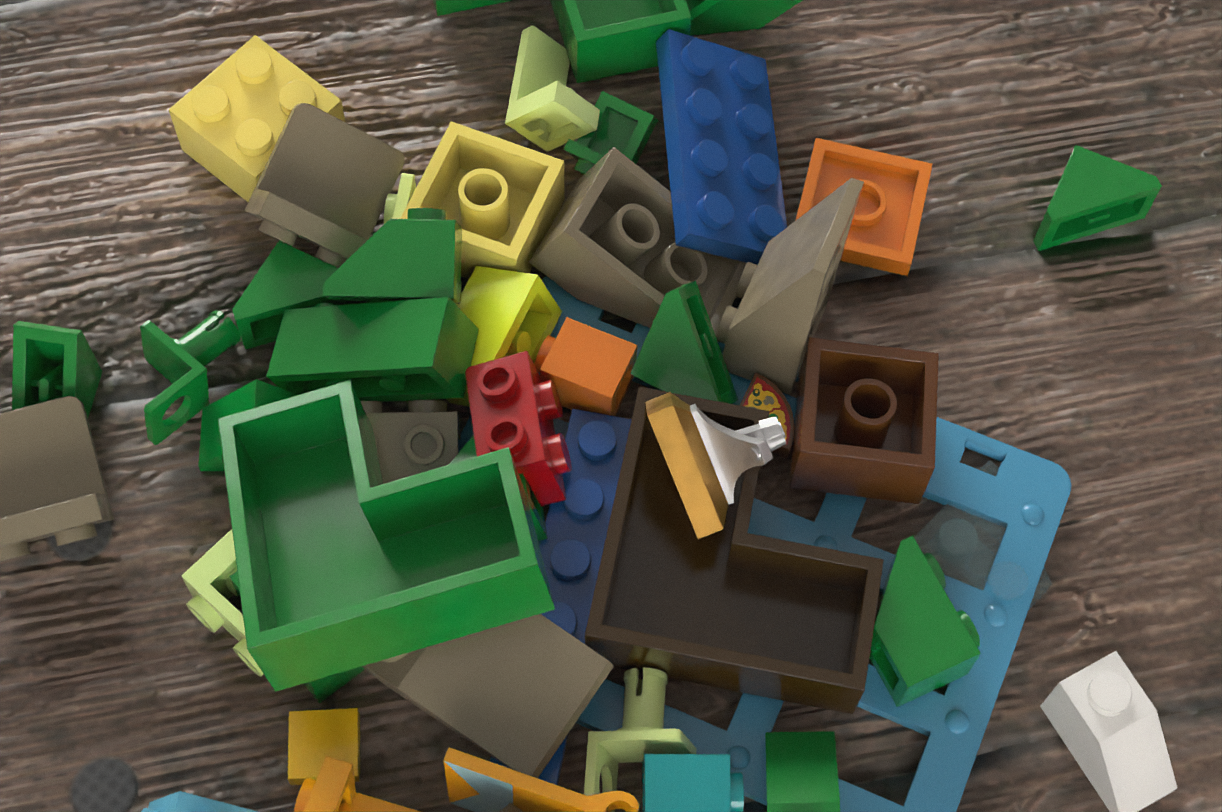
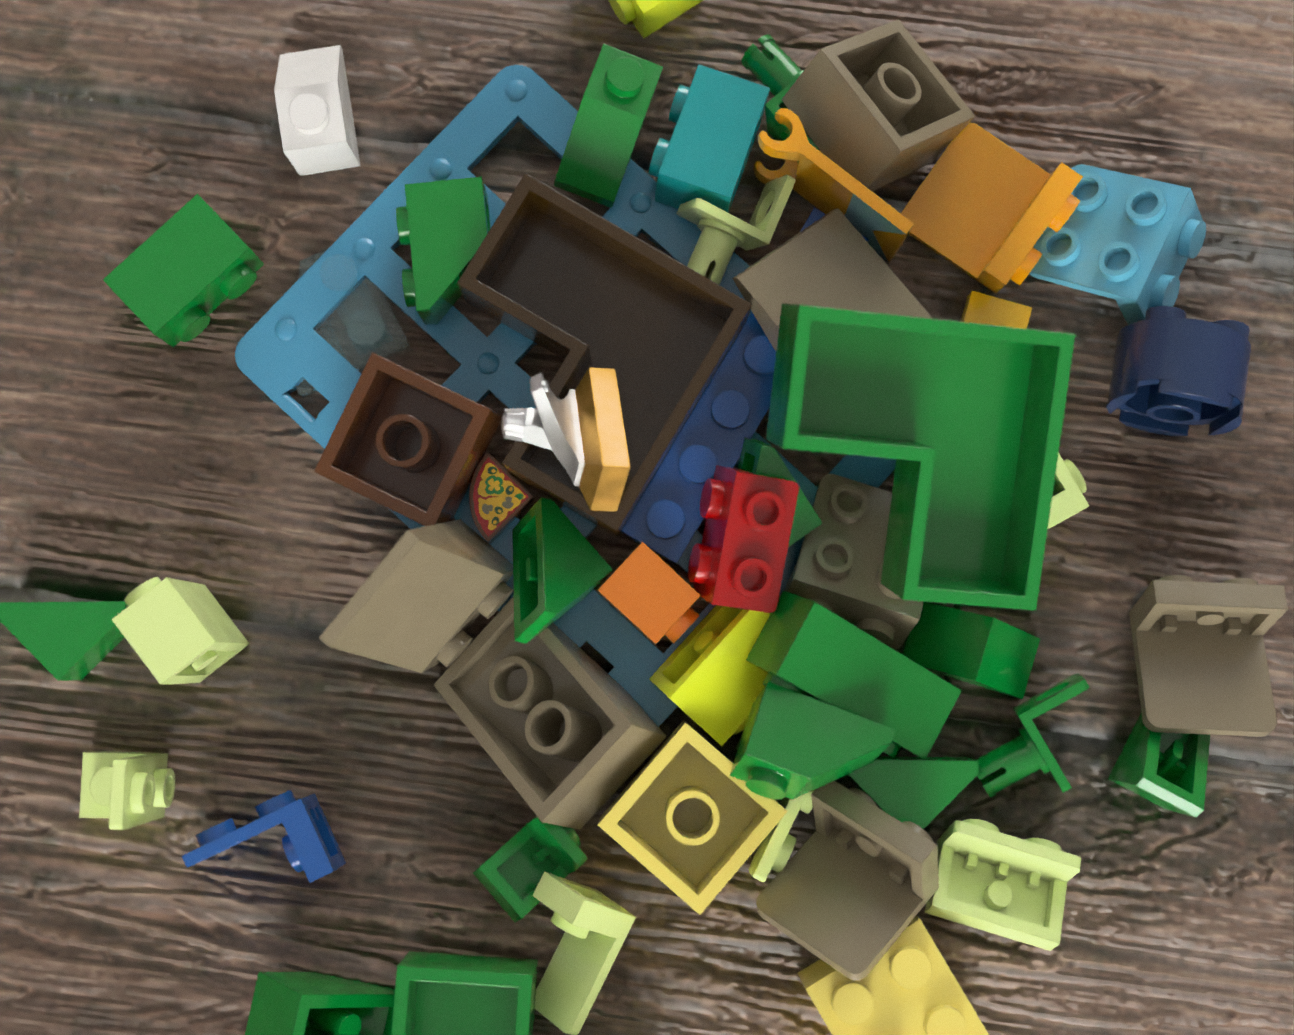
camera: 160 degrees left, 20 degrees up
(113, 737) = (1180, 373): none -> dark blue brick
(186, 241) = (1002, 883): none -> yellowish green bracket
(719, 148) = (421, 813): blue plate -> none
(813, 113) = (307, 846): none -> blue bracket
(888, 206) = (303, 703): orange plate -> none
(974, 98) = (125, 787): none -> yellowish green bracket
(992, 211) = (178, 630): none -> yellowish green brick
(1151, 528) = (184, 273): none -> green brick

